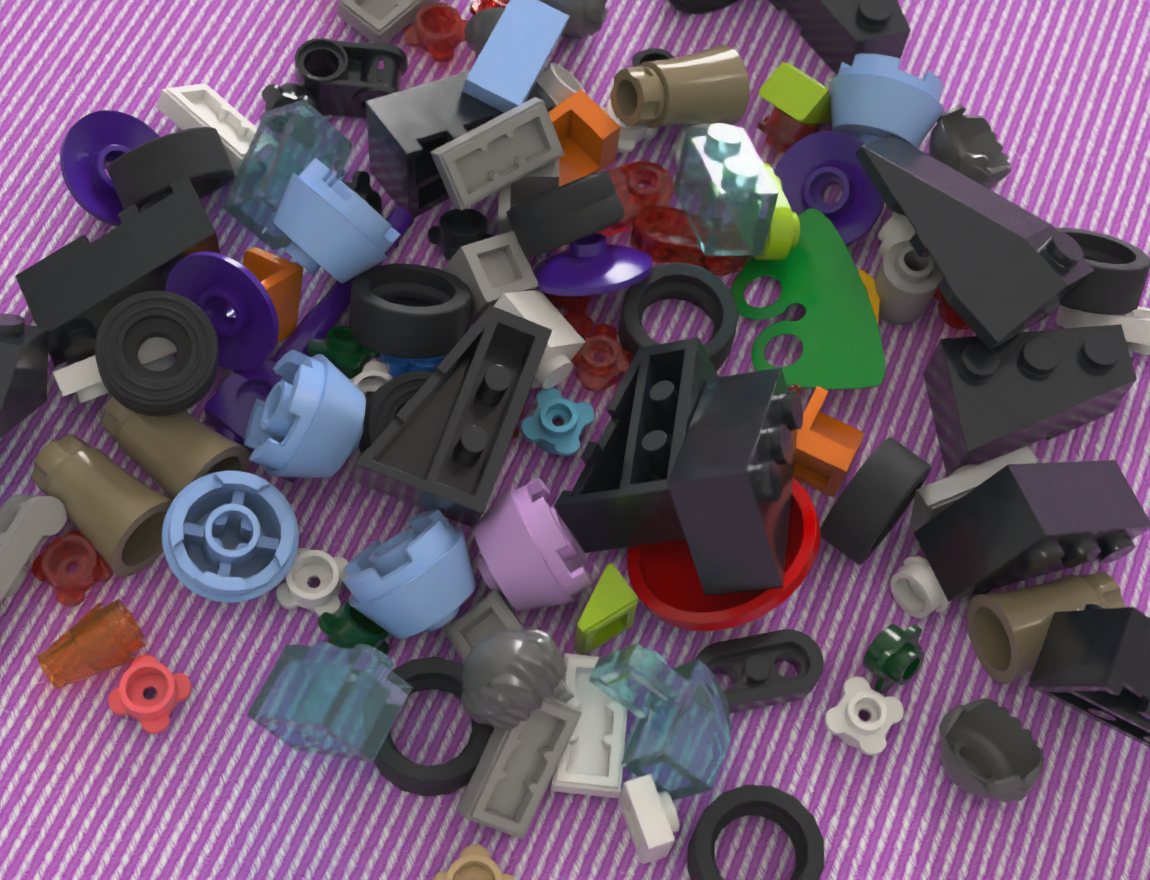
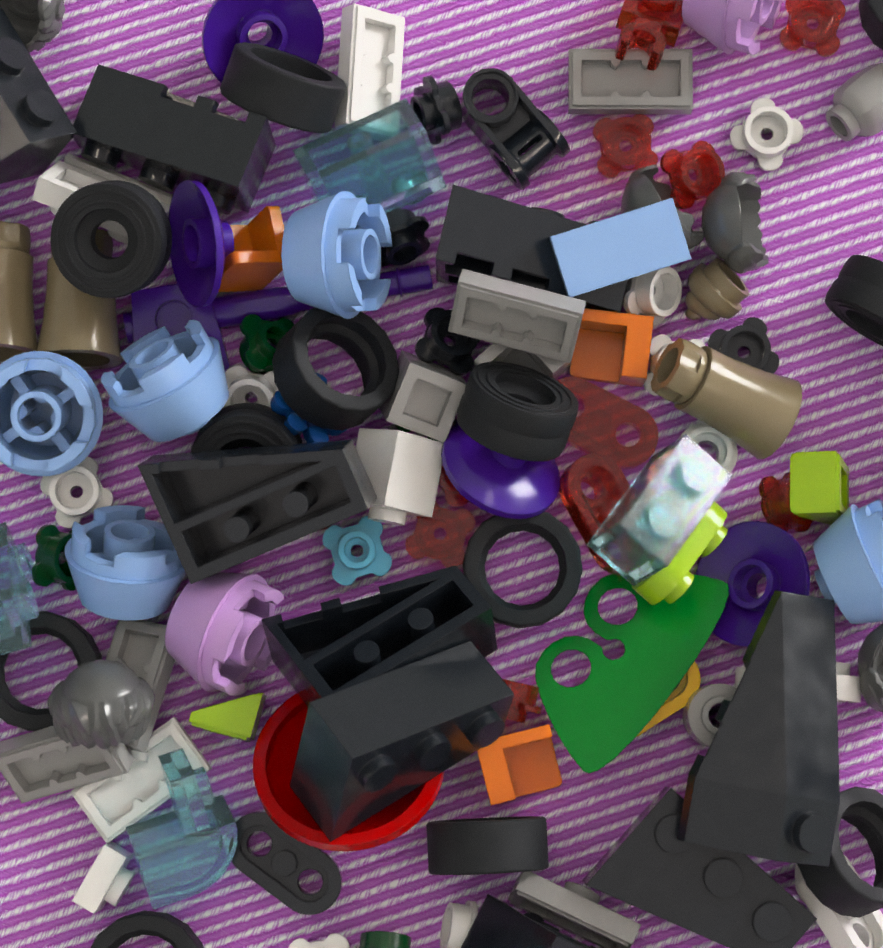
camera: 60 degrees right, 20 degrees up
(595, 57) = (714, 292): none -> dark tan plate

